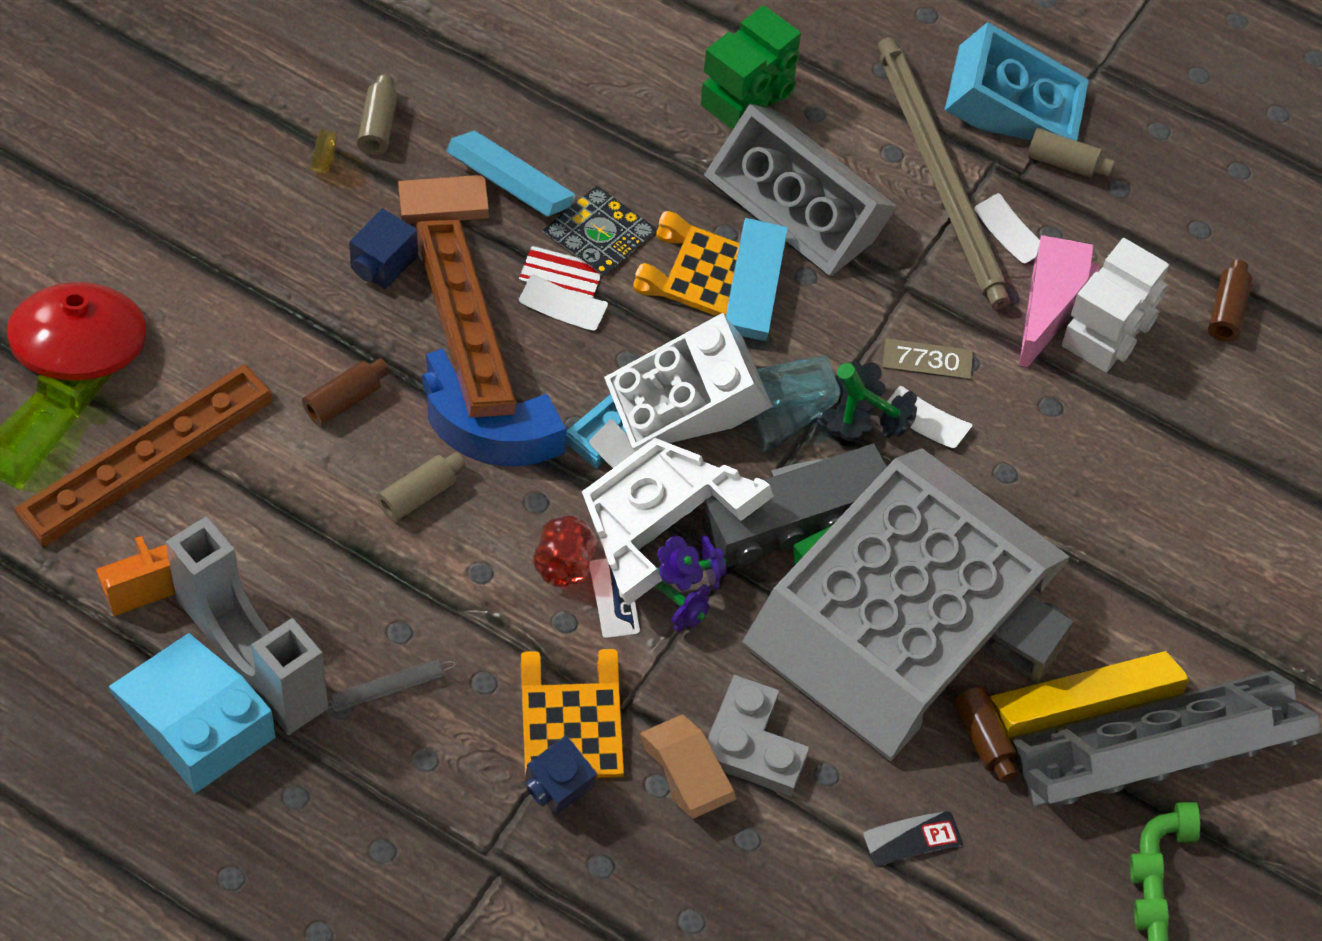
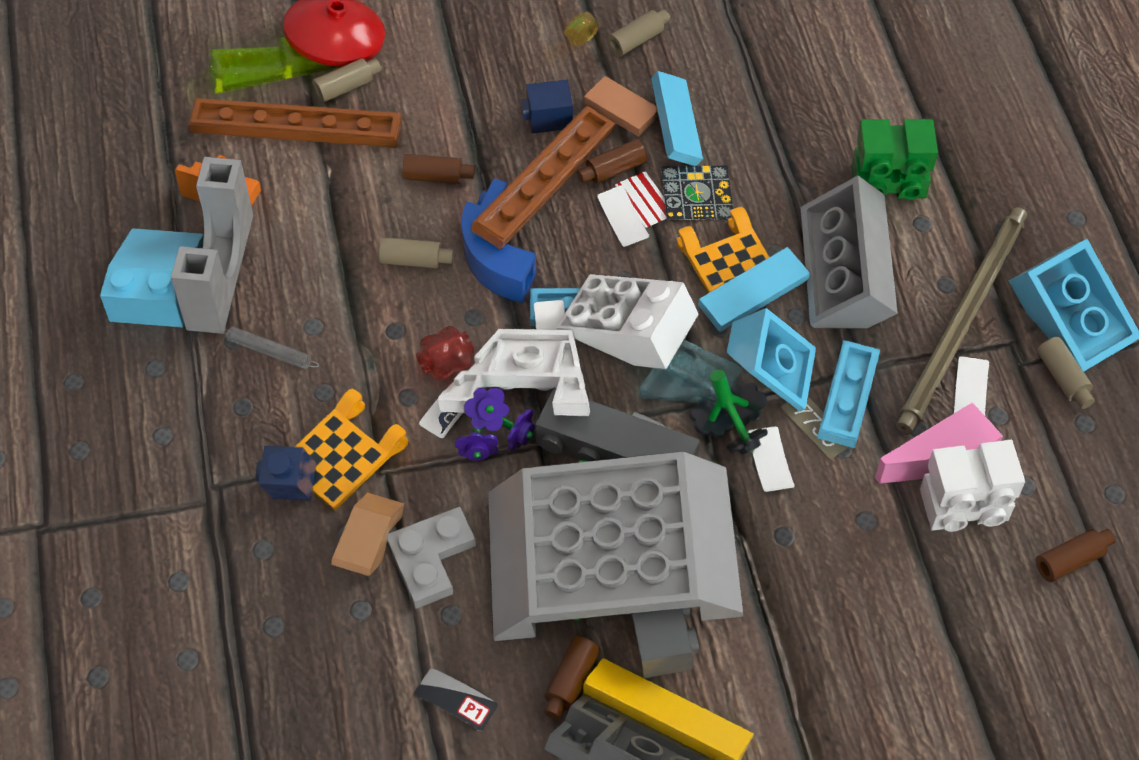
camera: 50 degrees right, 0 degrees up
(147, 372) = (345, 79): none -> dark tan cylinder
(501, 257) = (613, 162): none -> reddish brown cylinder
(837, 324) = (774, 355): none -> medium azure slope
(926, 309) = (848, 394): none -> medium azure tile

